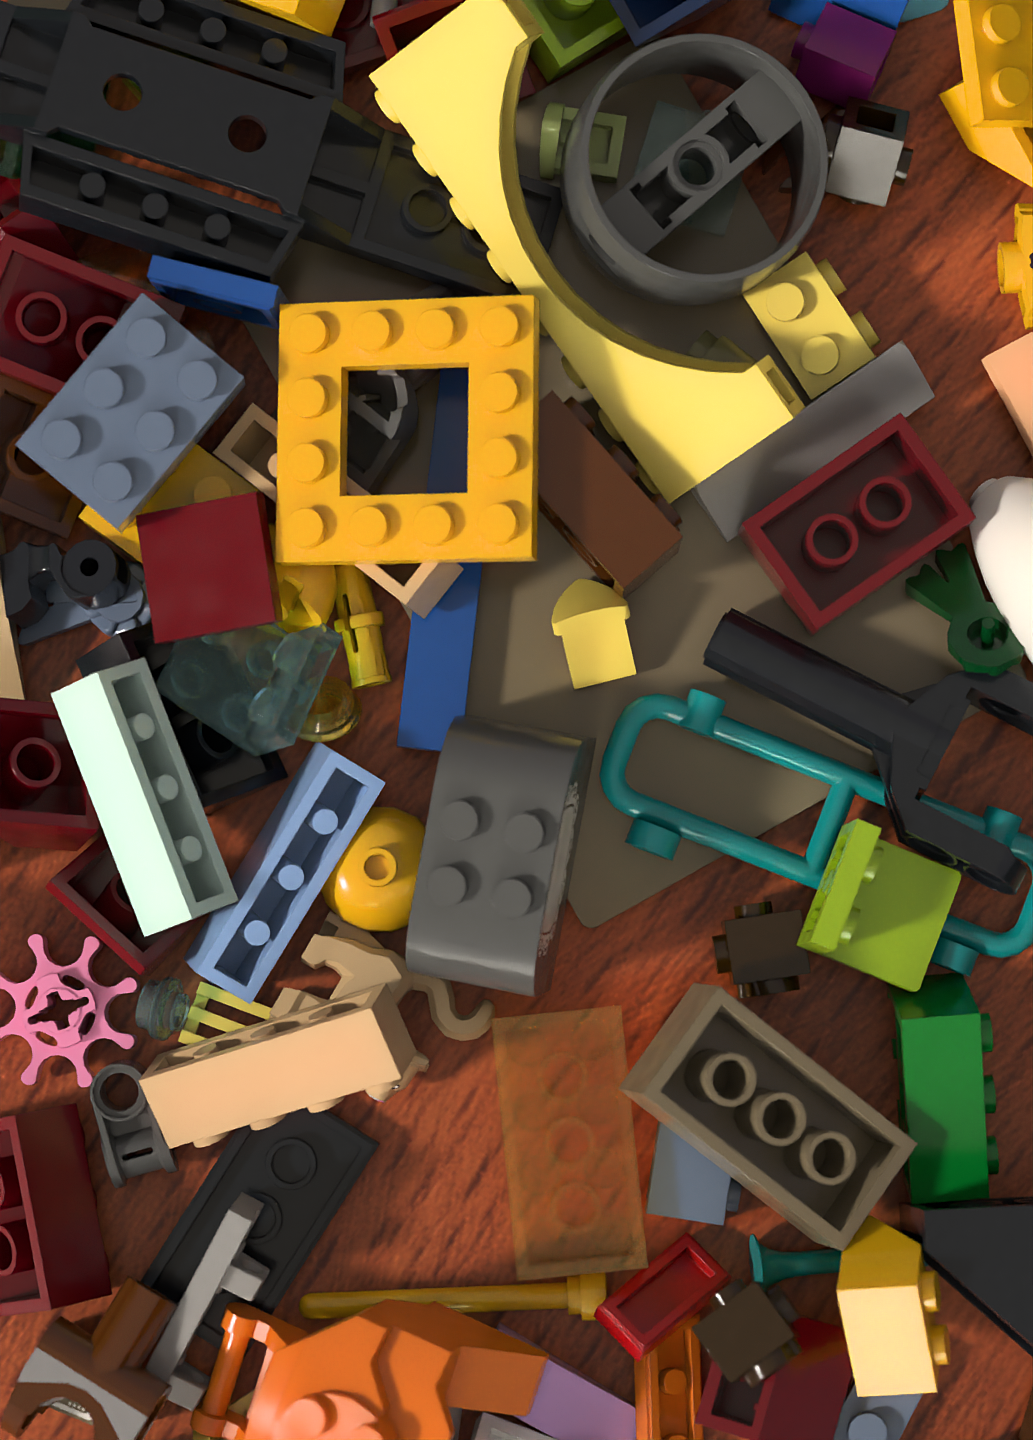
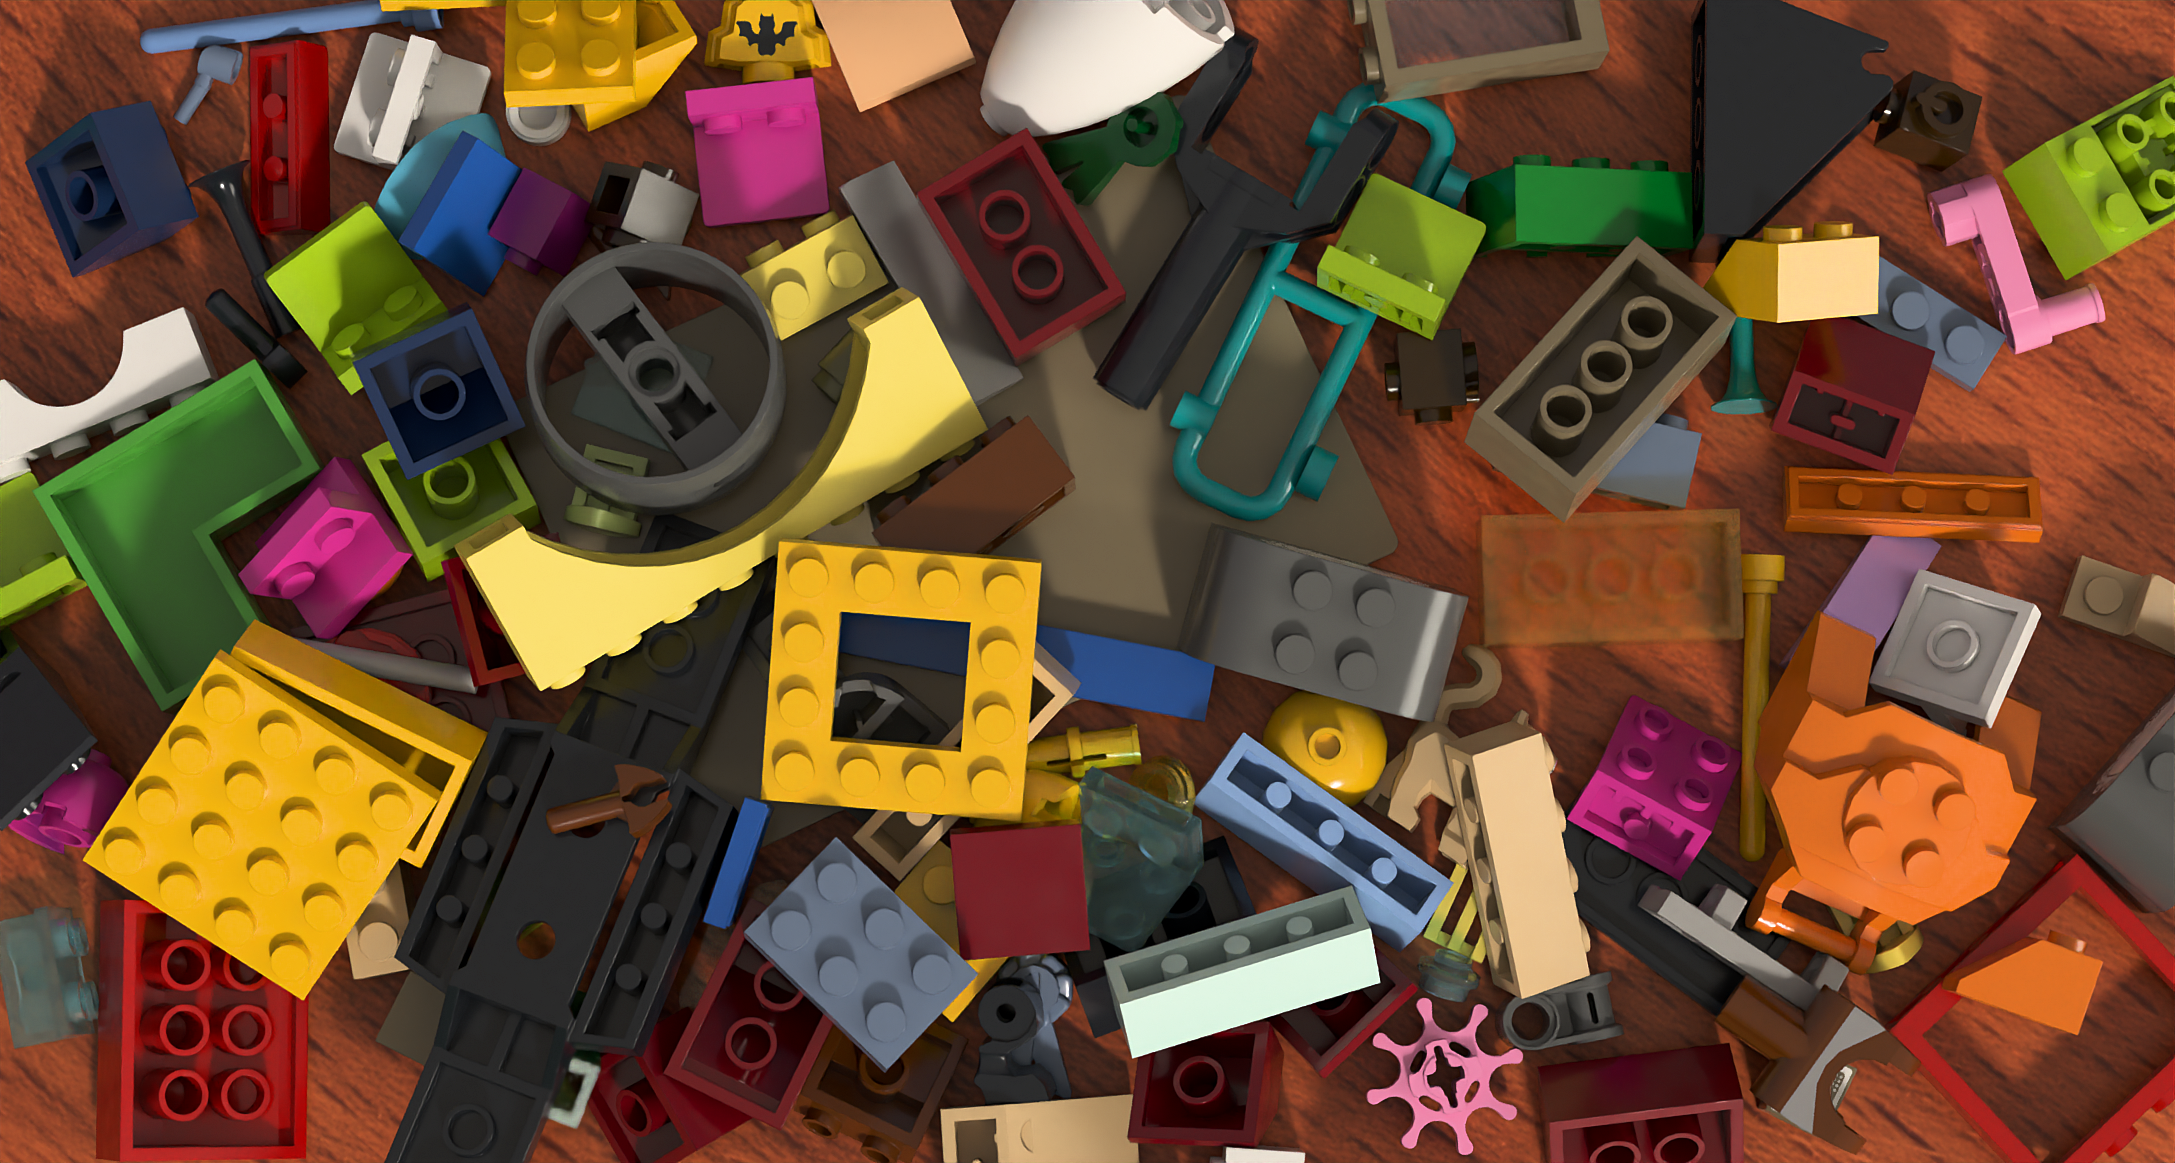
camera: 90 degrees left, 0 degrees up
(261, 157) = (614, 805): none -> reddish brown bar
(364, 1205) = (1657, 788): none -> dark pink bracket
(593, 633) = (1106, 516): light yellow tile -> none
(662, 1296) = (1767, 499): red tile -> none
(750, 1331) = (1809, 411): dark brown brick -> none
(933, 264) = (759, 152): none -> dark pink bracket
(942, 51) = (539, 123): none -> white tile

